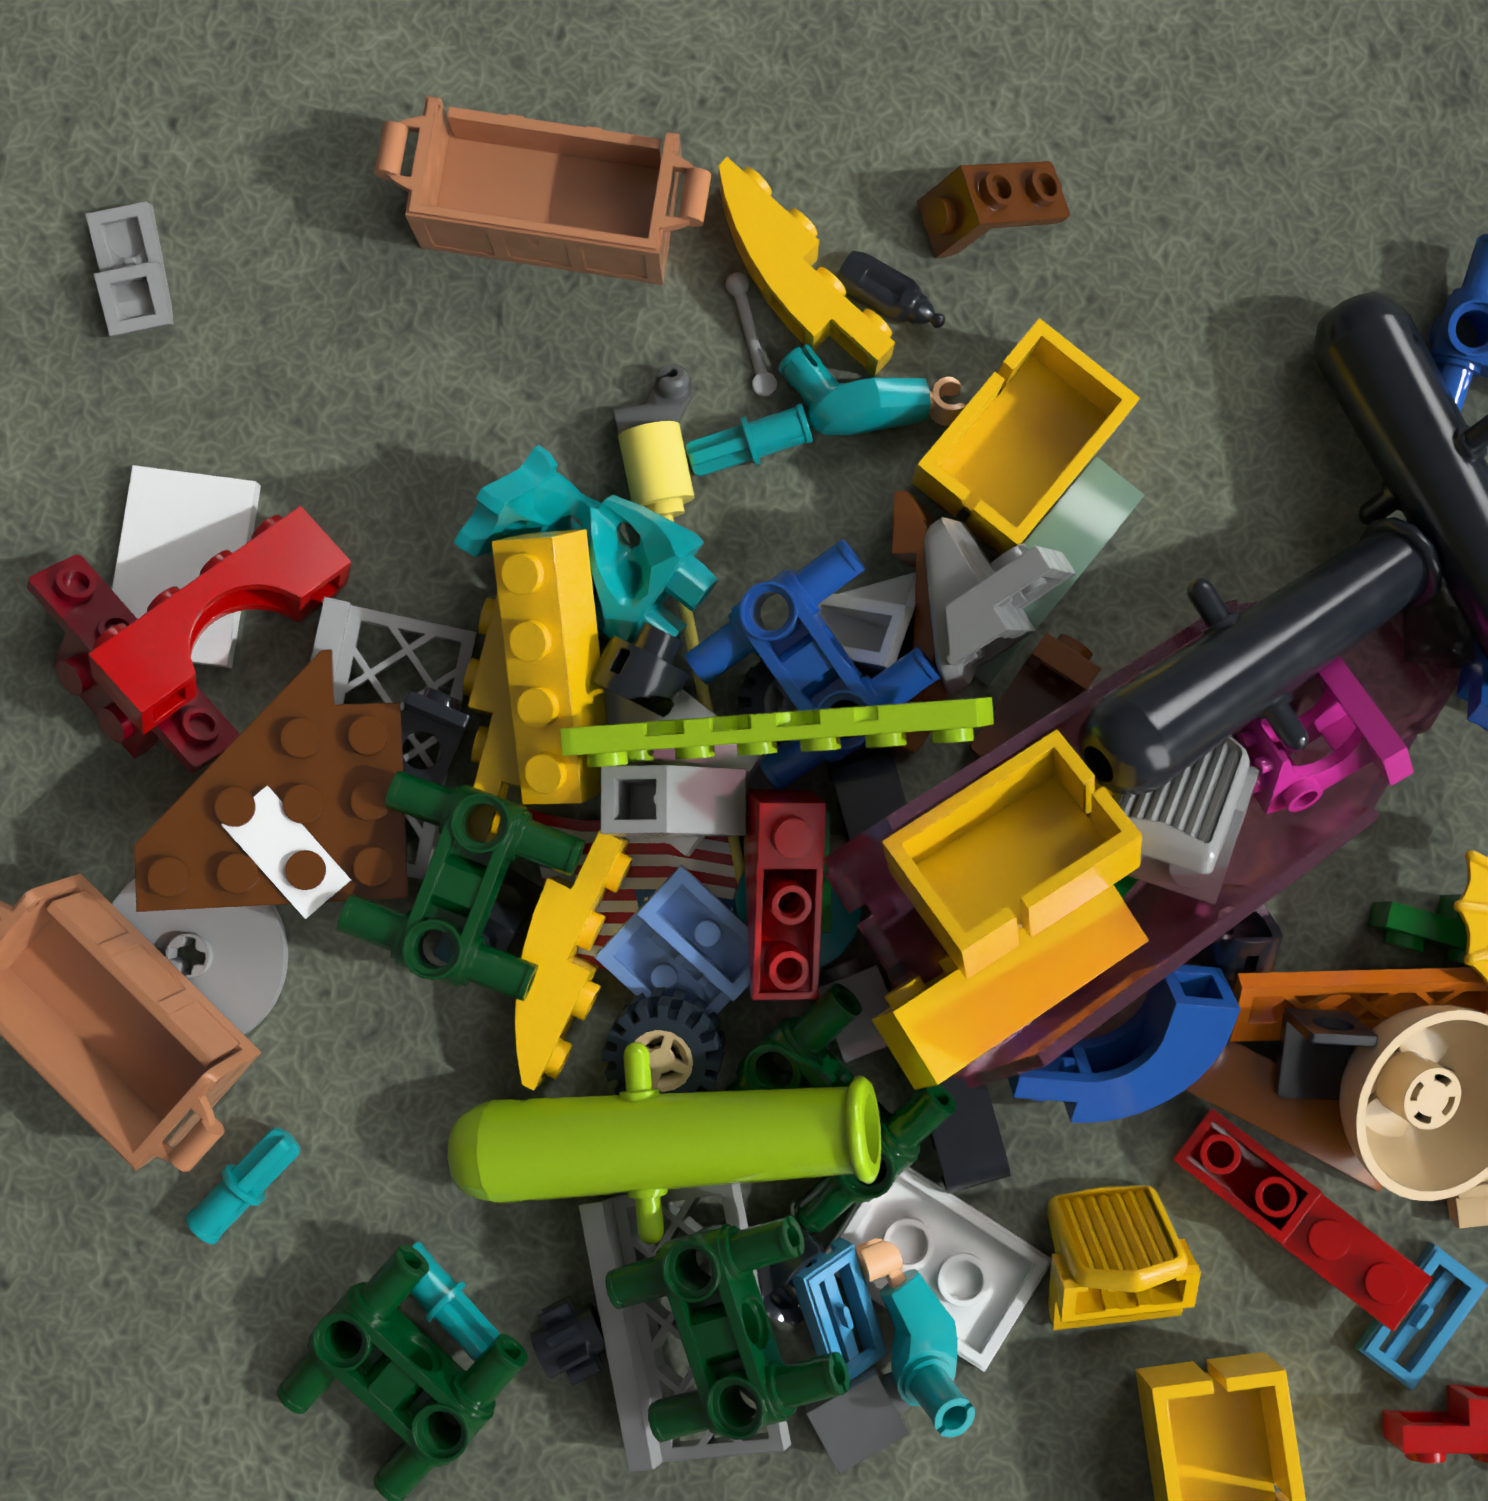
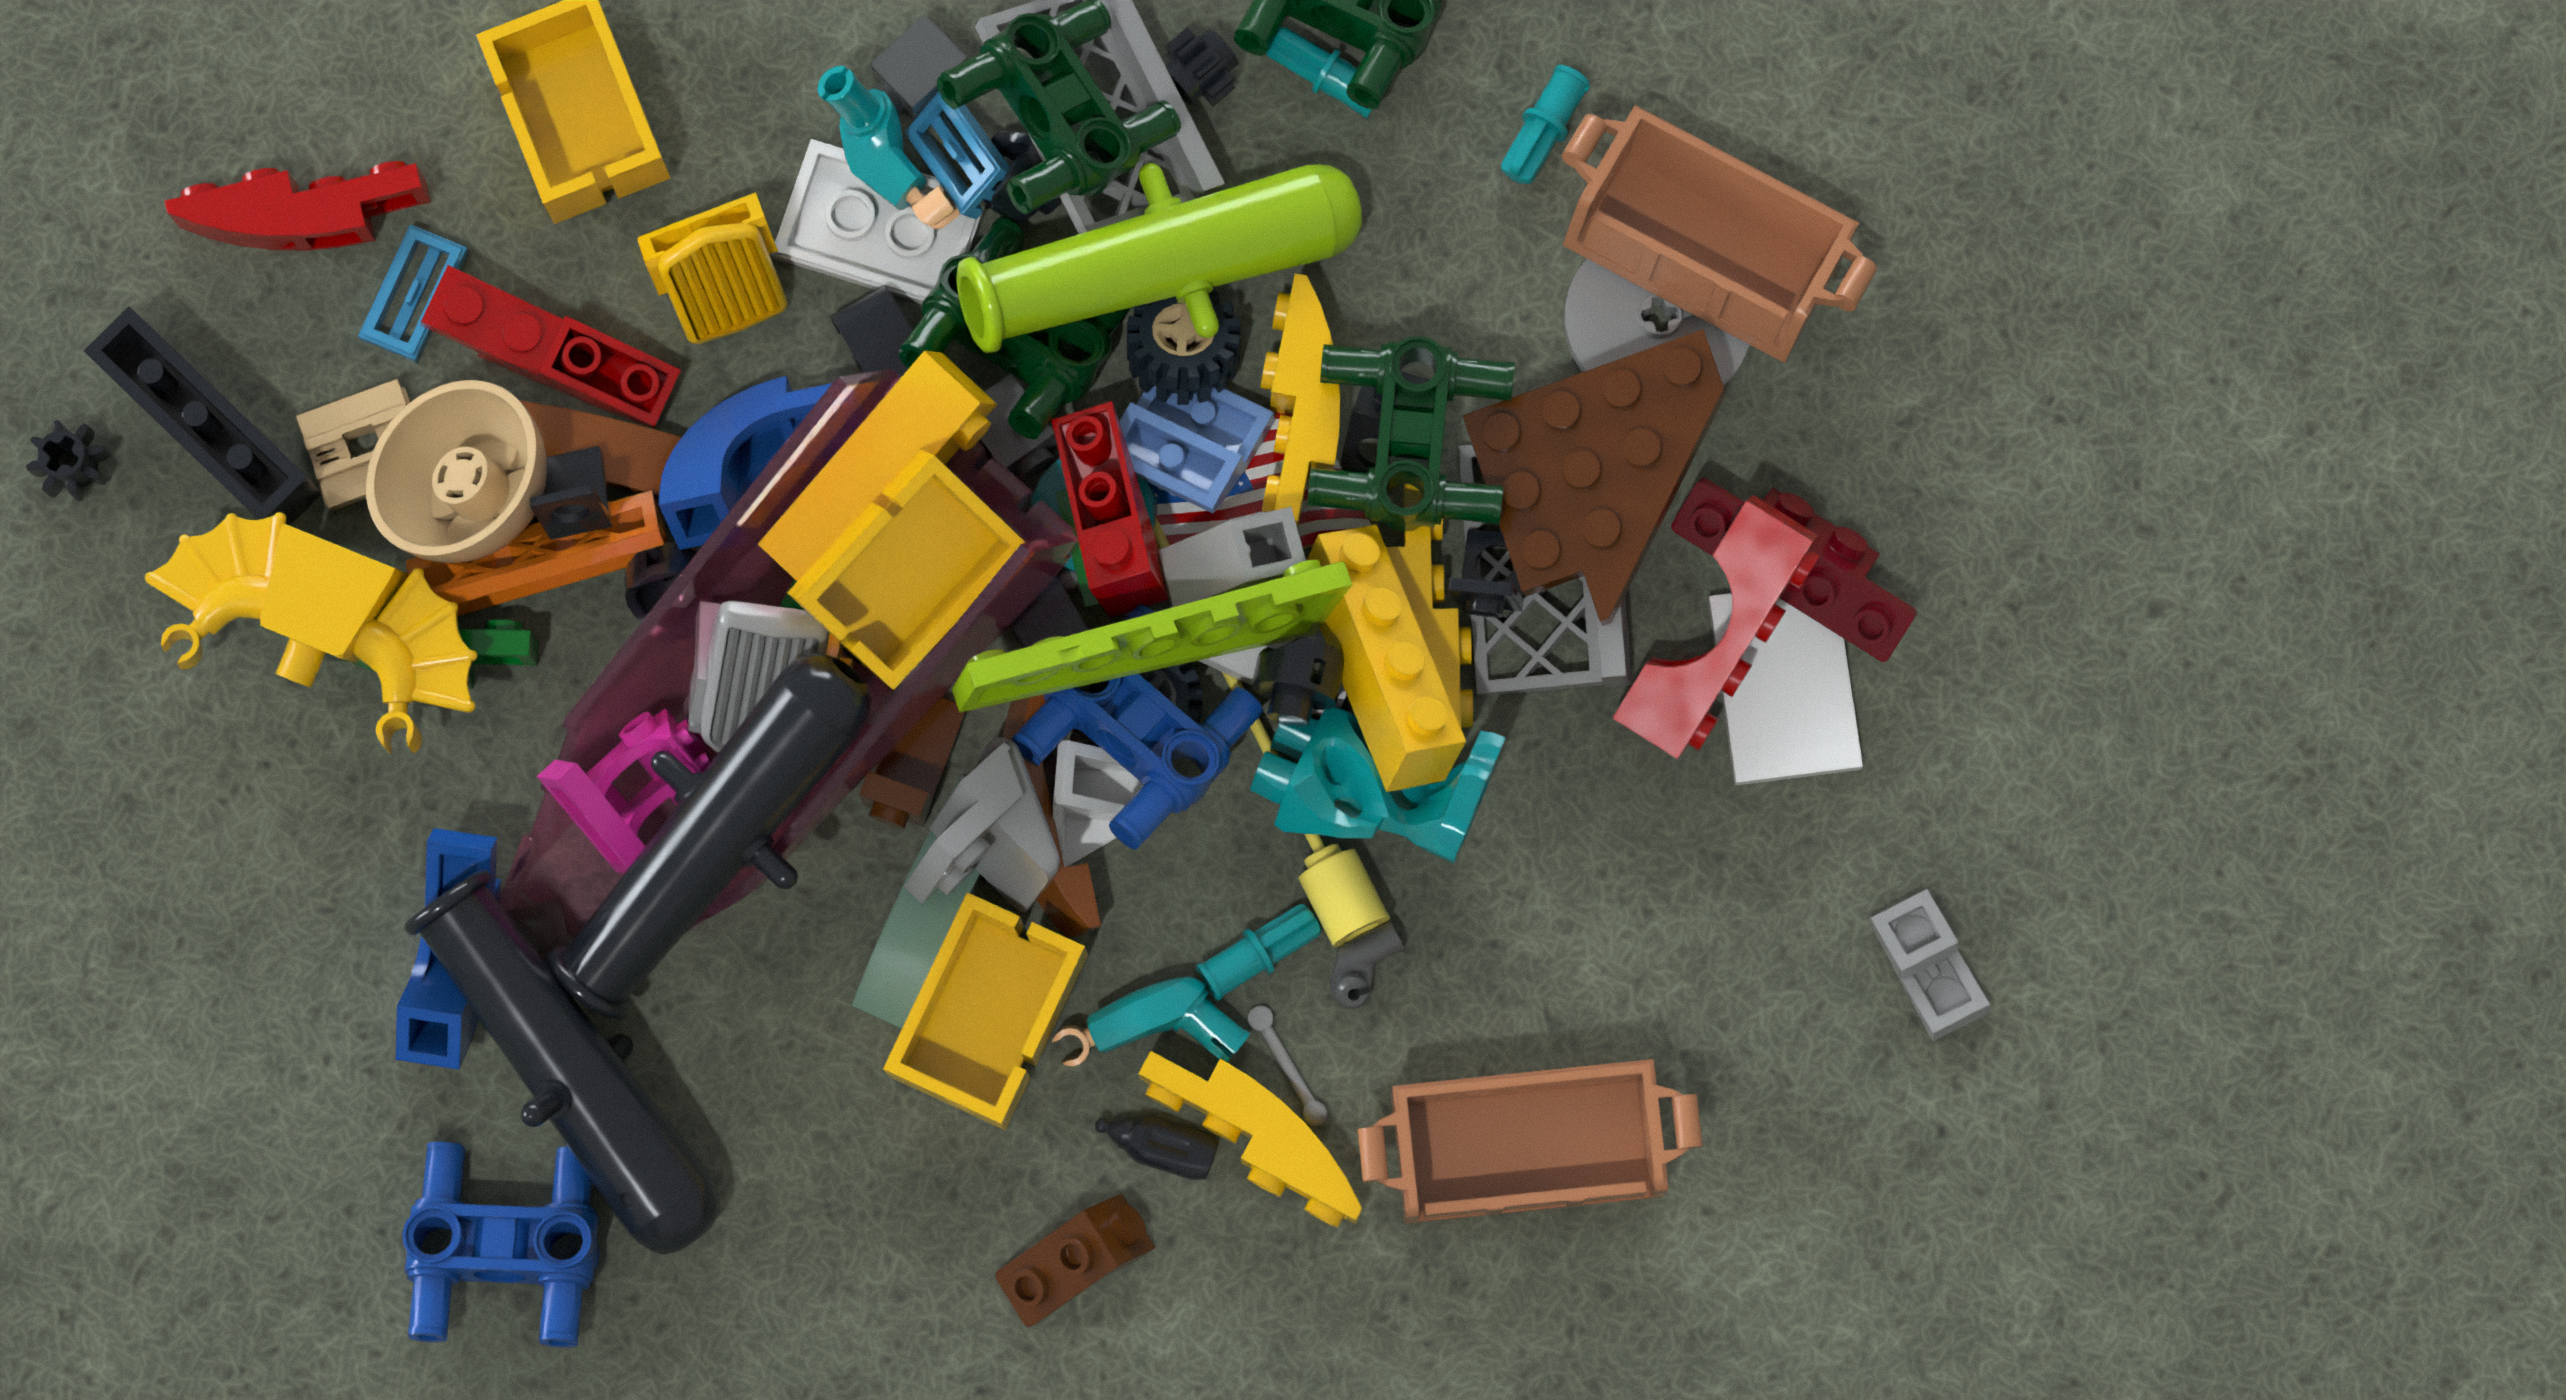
camera: 165 degrees right, 5 degrees down
(273, 839) = (1598, 429): white sticker -> none

